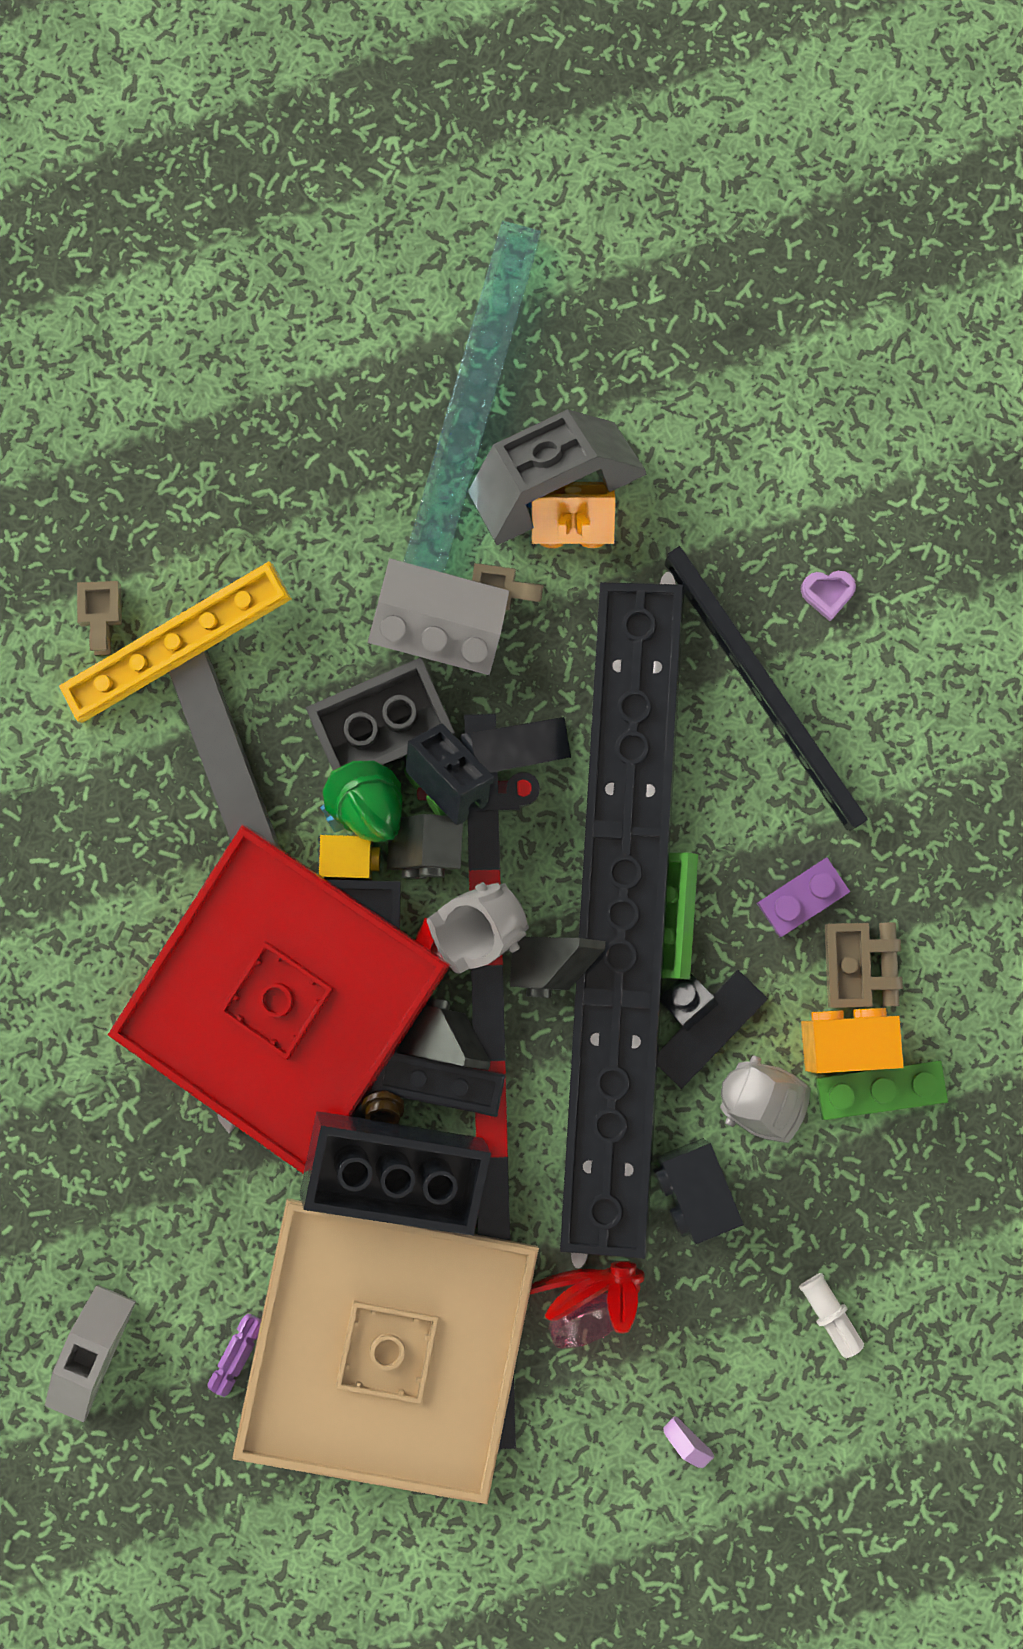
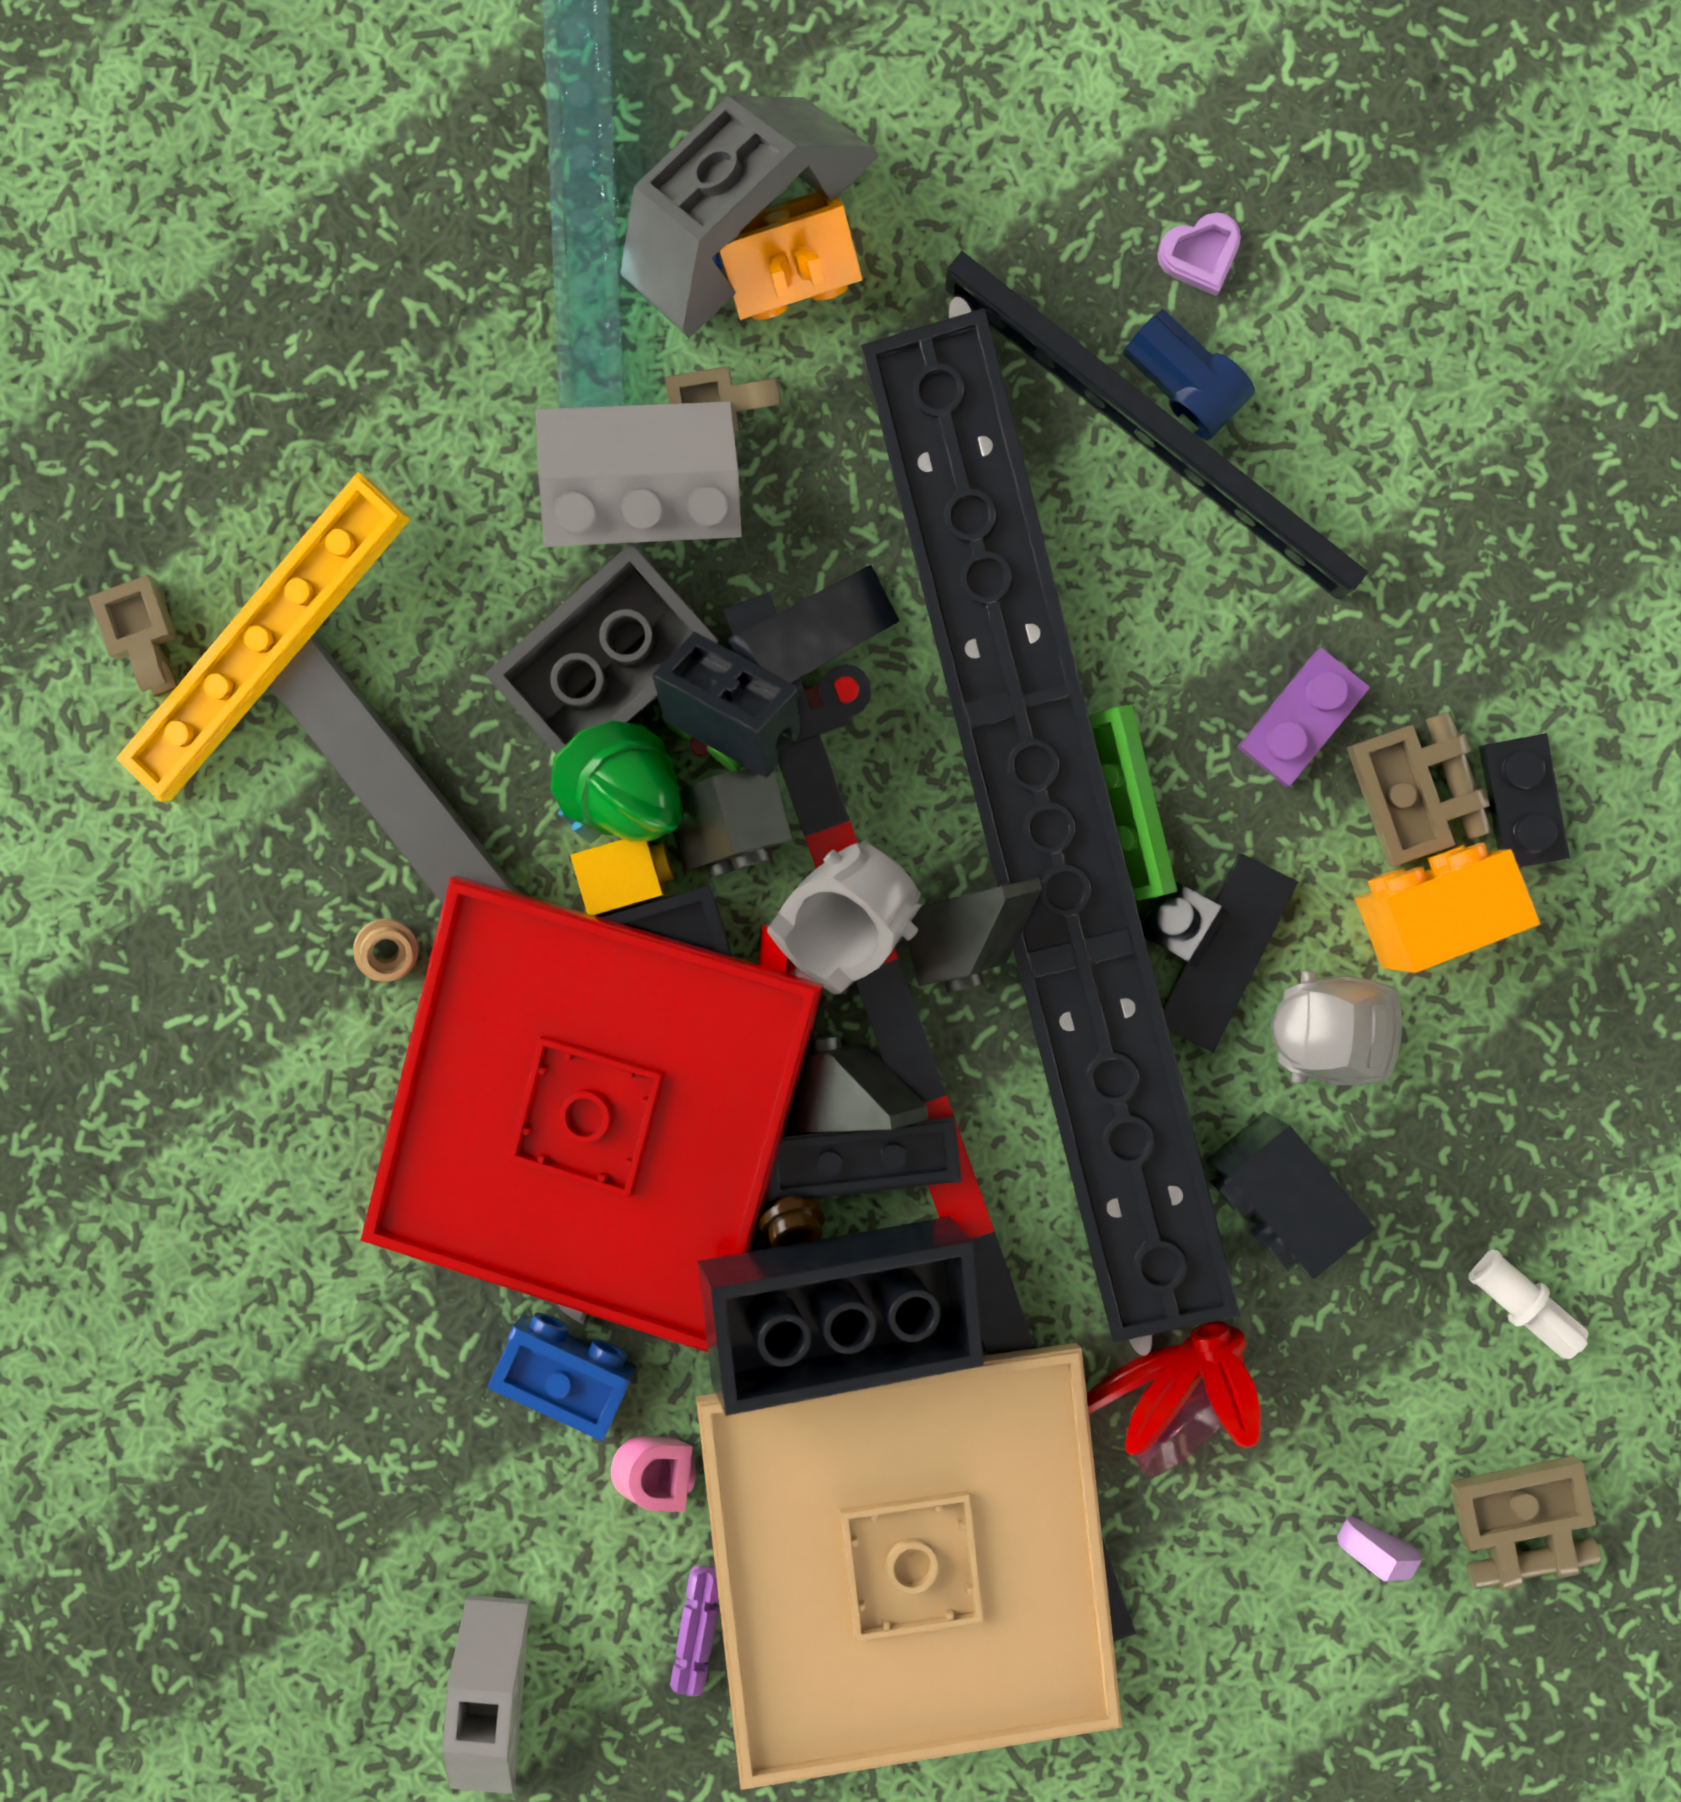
camera: 10 degrees left, 5 degrees up
(188, 870) = (385, 969): none -> tan plate
(206, 1161) = (563, 1374): none -> blue bracket
(243, 1242) = (655, 1472): none -> bright pink plate
(787, 1443) = (1525, 1505): none -> dark tan plate
(799, 669) = (1198, 384): none -> dark blue piece
(881, 1090) = (1505, 966): bright green plate -> none
(925, 994) = (1525, 799): none -> black plate

